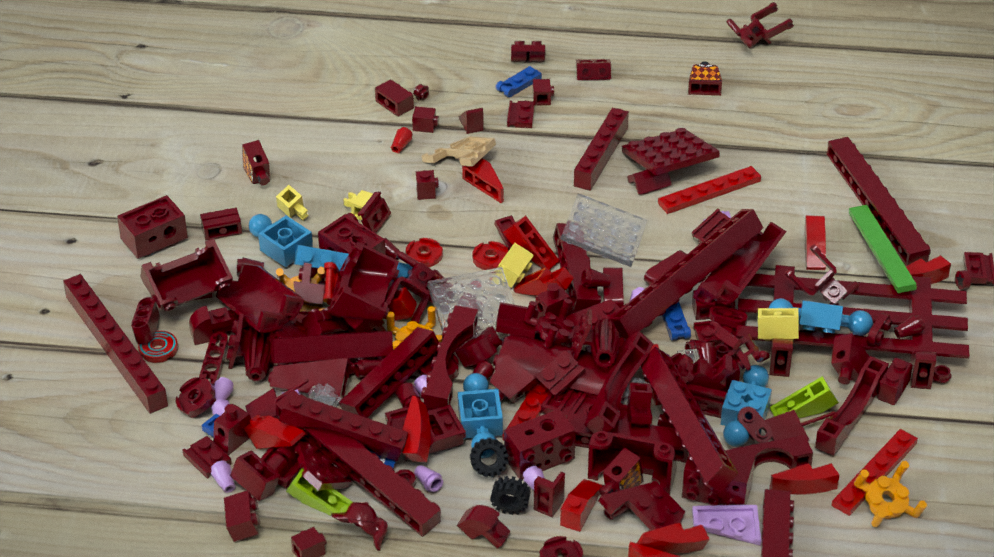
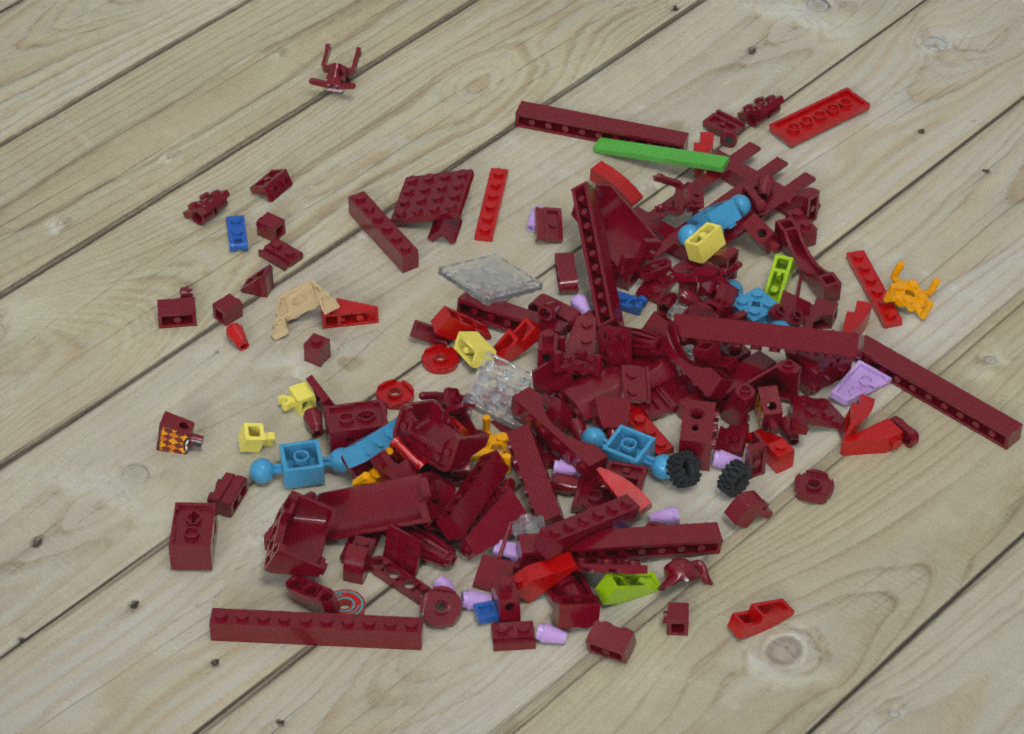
camera: 55 degrees left, 0 degrees up
(574, 471) = (733, 439): none -> dark red plate
(705, 80) = (360, 134): dark red torso -> none

